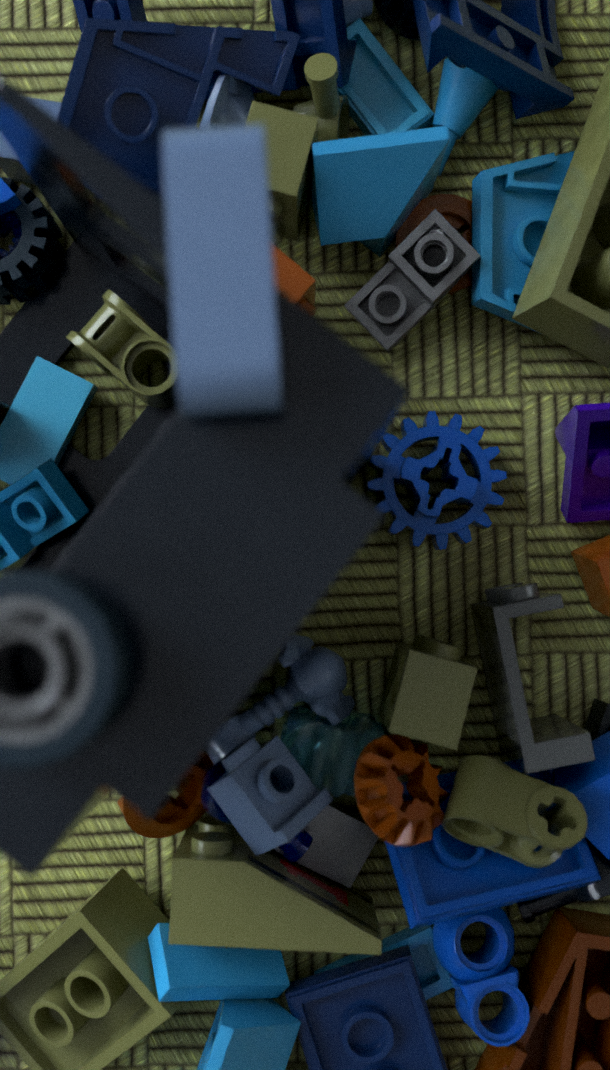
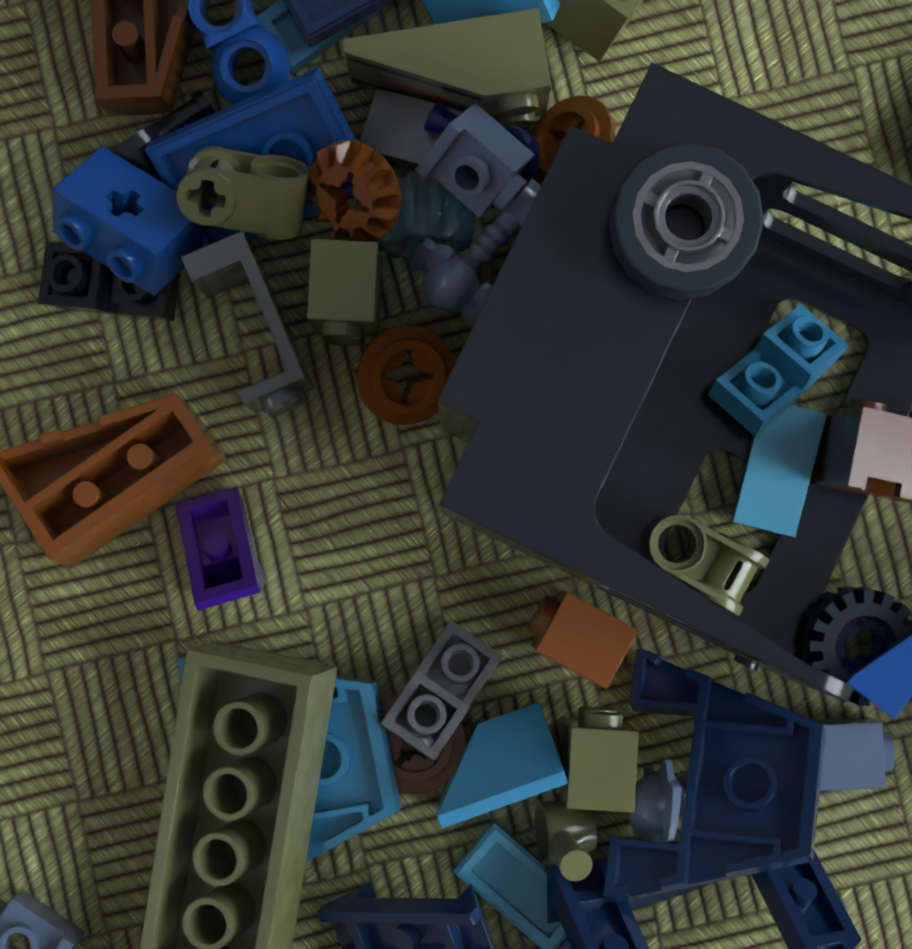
camera: 175 degrees right, 0 degrees up
(221, 270) = (606, 559): sand blue beam -> none
(366, 575) = (385, 352): none -> dark orange gear
(460, 101) = (434, 871): dark azure cone -> none
(462, 488) = (347, 495): blue gear -> none

